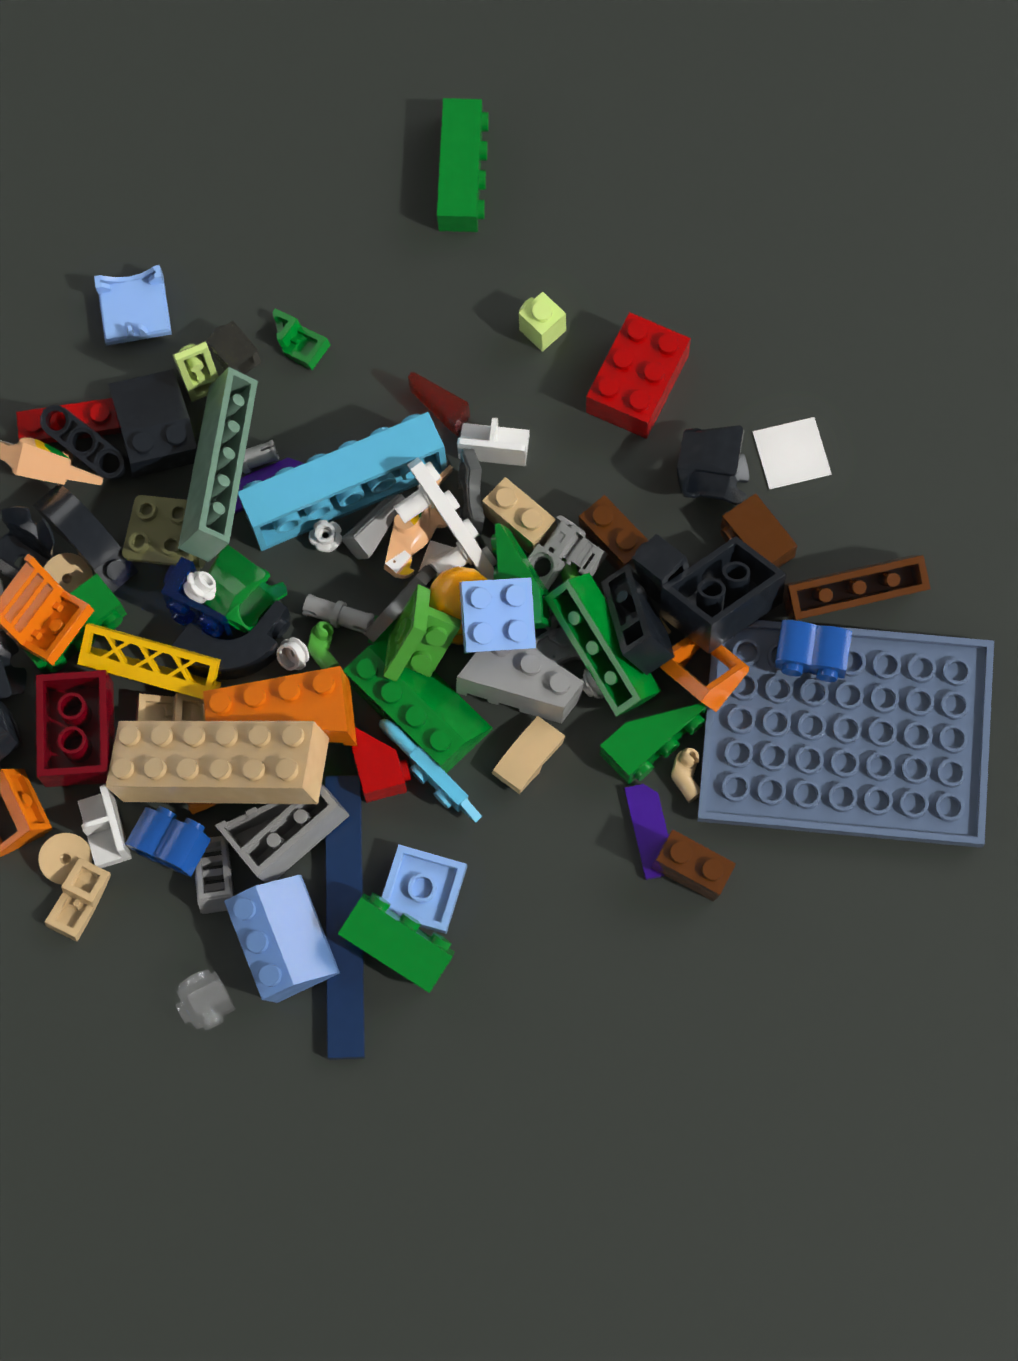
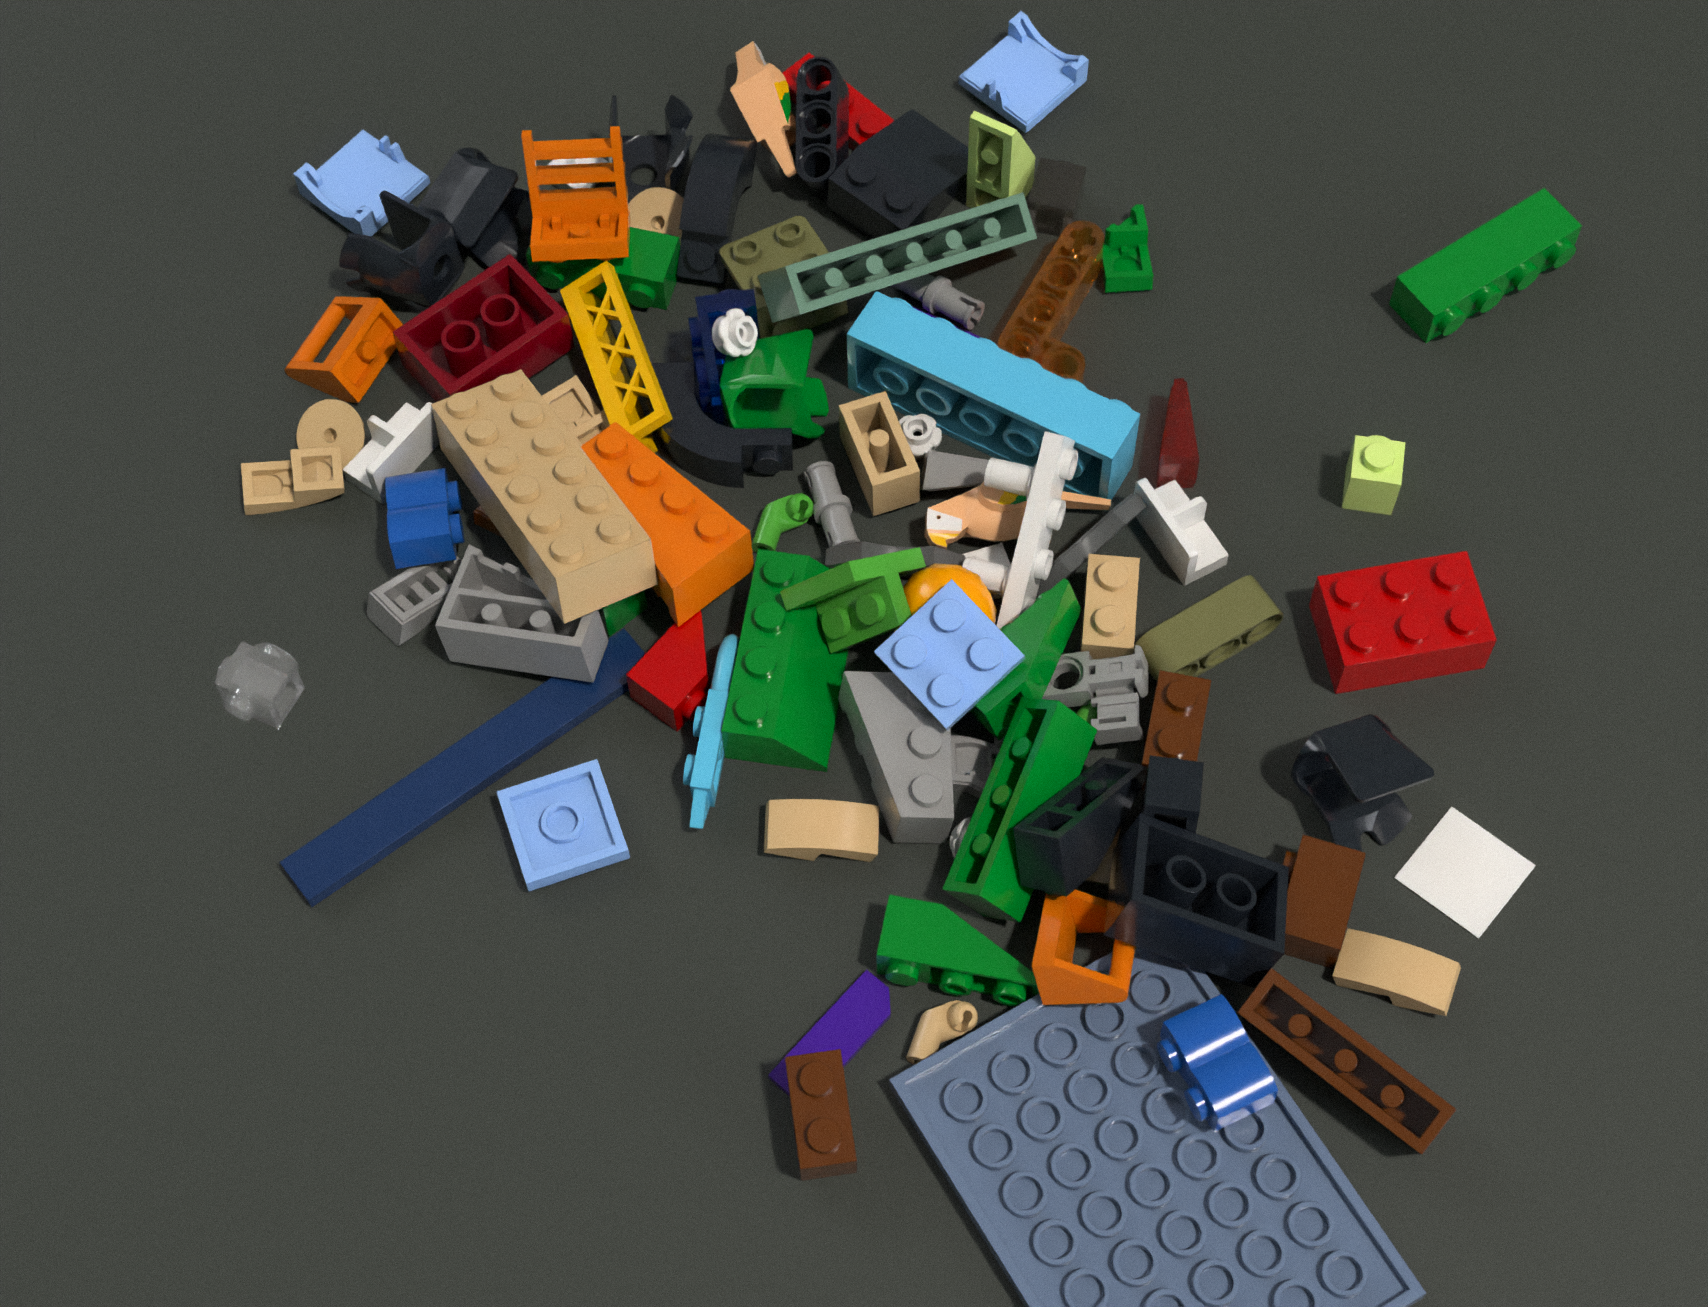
camera: 50 degrees right, 10 degrees down
(281, 938) = (386, 709): medium blue slope -> none
(292, 654) = (745, 495): white plate -> none
(306, 404) = (1056, 304): none -> clear orange beam
(327, 564) = (879, 453): none -> tan brick
(397, 941) = (469, 835): green brick -> none
(568, 473) = (1211, 630): none -> olive beam
(823, 526) = (1393, 968): none -> tan slope

